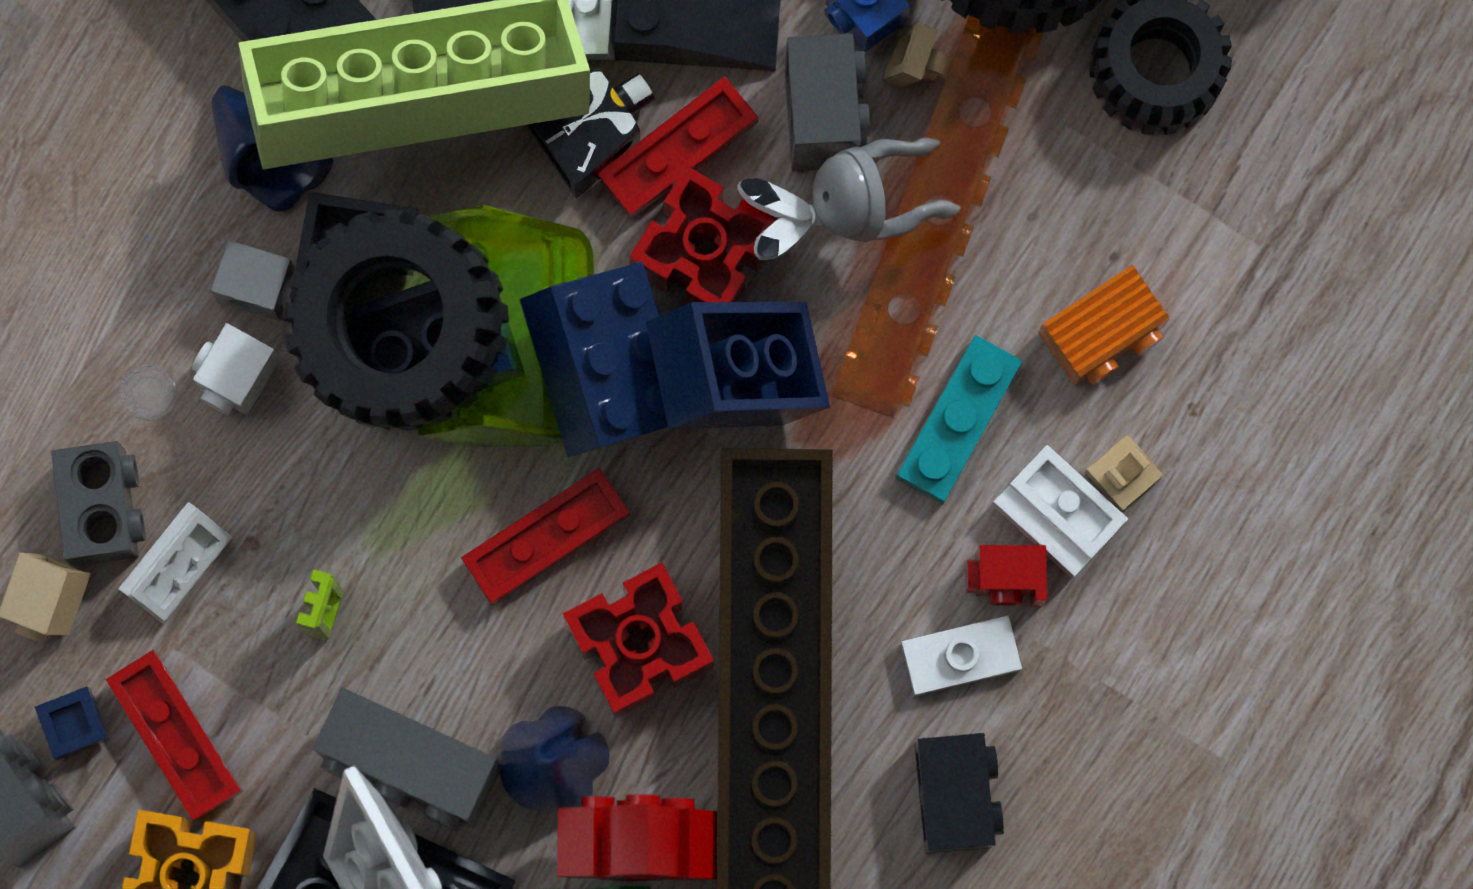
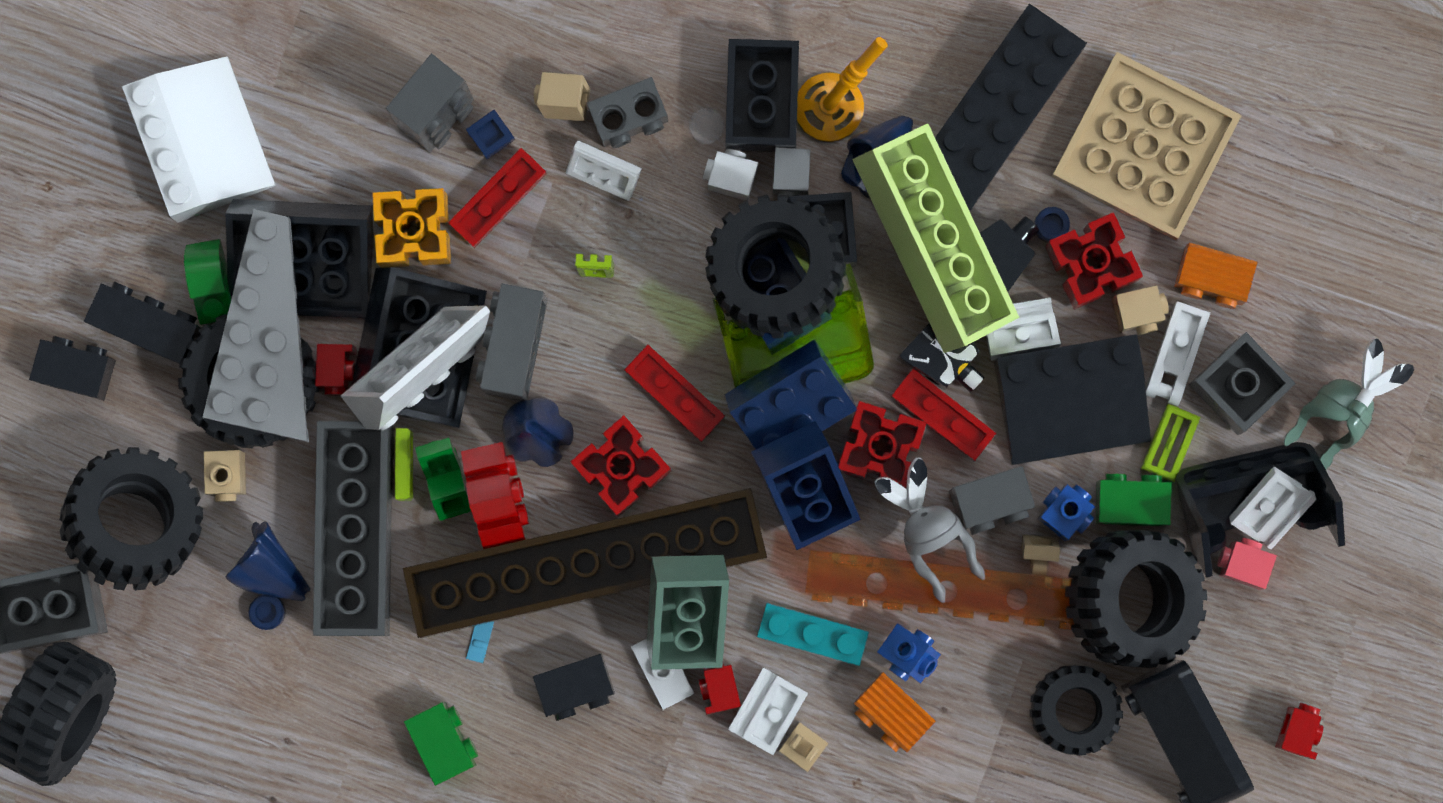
camera: 85 degrees right, 5 degrees up
(124, 293) = (761, 94): none -> black brick
(159, 189) = (835, 97): none -> light orange dish
(887, 586) = (687, 612): none -> sand green brick
(1006, 282) = (909, 654): none -> blue brick

